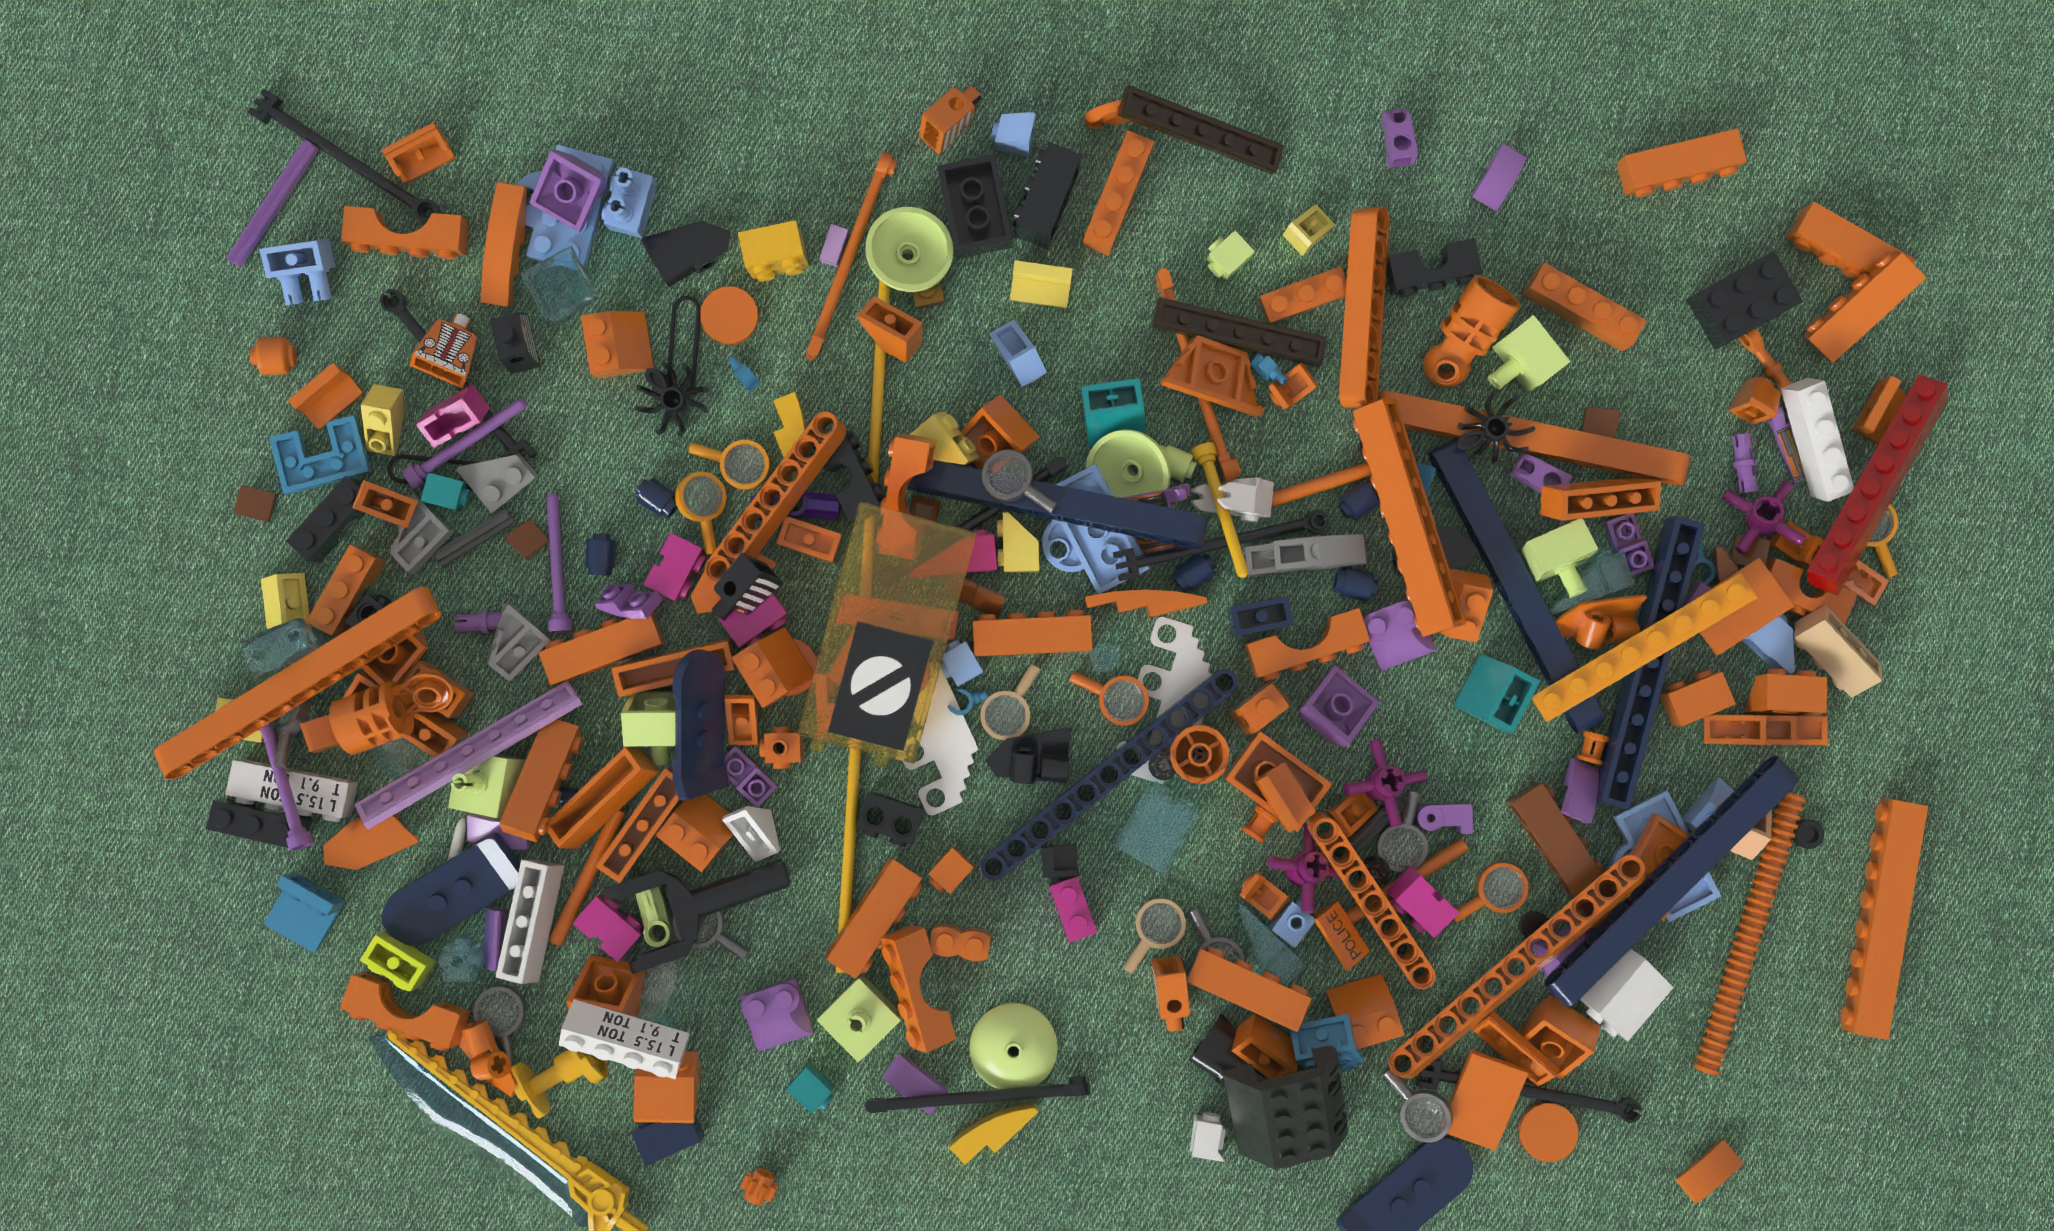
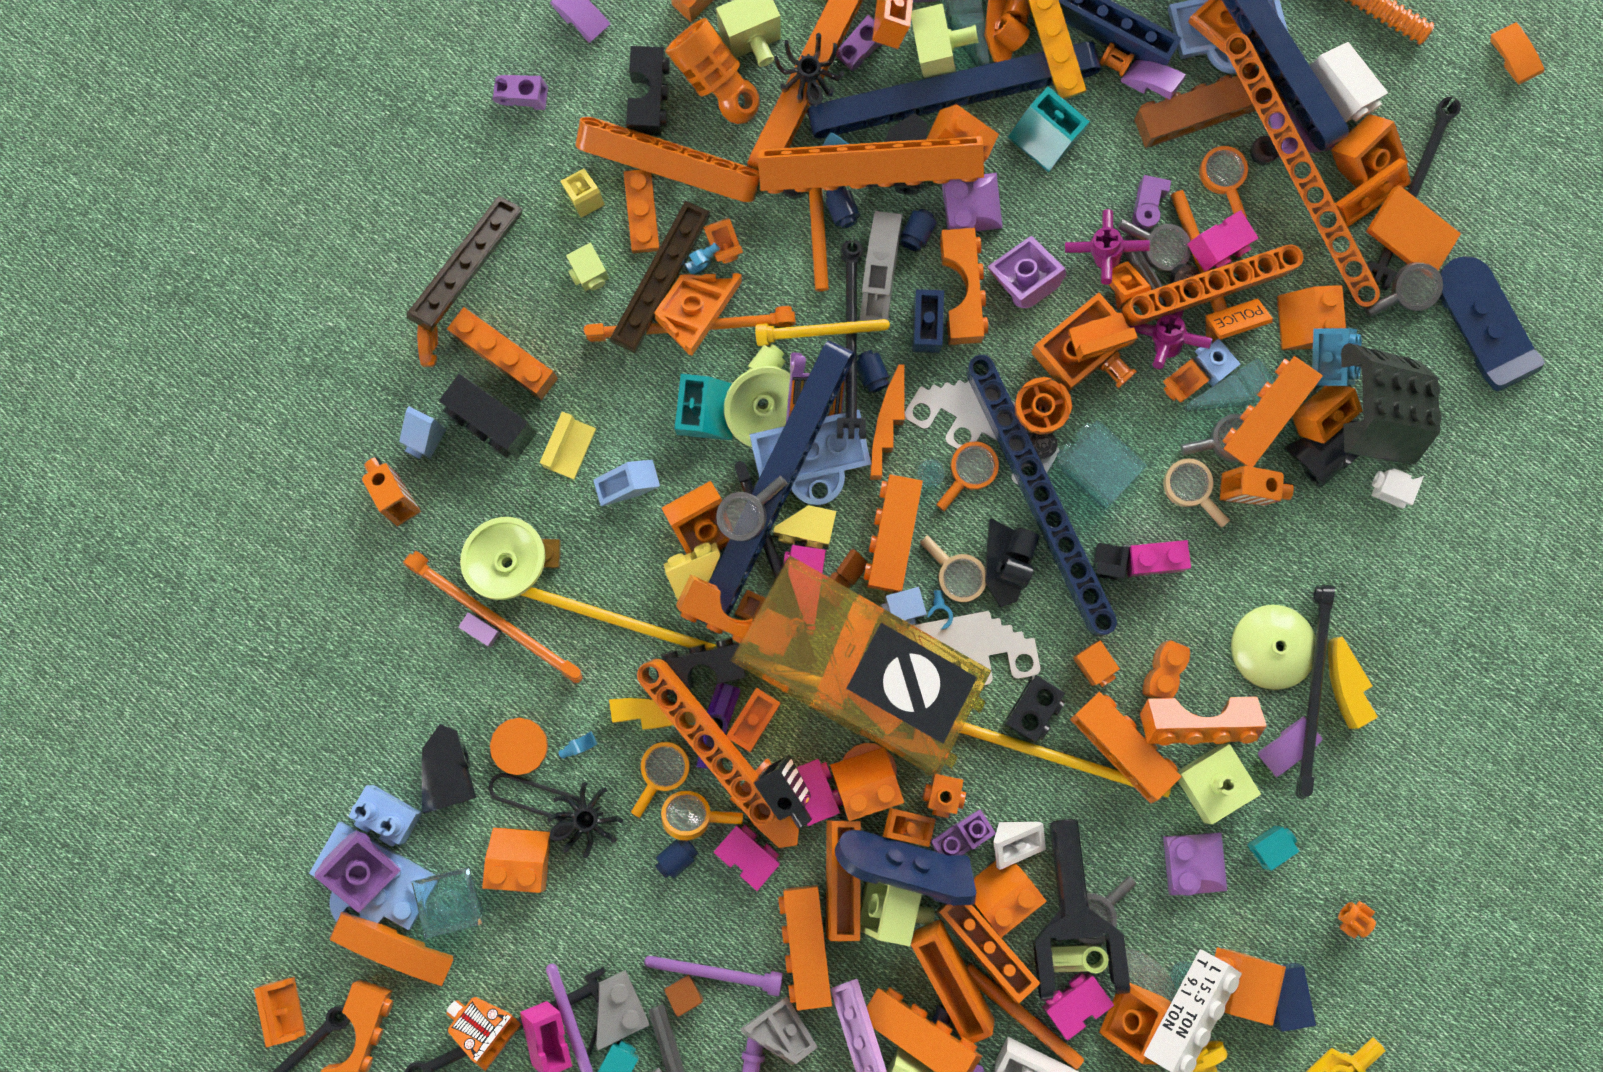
camera: 70 degrees left, 5 degrees down
(515, 339) = (489, 960): black torso -> none
(600, 554) = (716, 927): dark blue brick -> none
(627, 603) = (769, 912): medium lavender slope -> none
(773, 251) = (470, 685): yellow brick -> none
(891, 329) = (573, 593): orange slope -> none
(975, 206) = (478, 487): black brick -> none
(1243, 497) = (814, 307): white piece -> none
(1260, 708) = (1012, 341): orange torso -> none
(1548, 1131) = (1452, 184): orange tile -> none

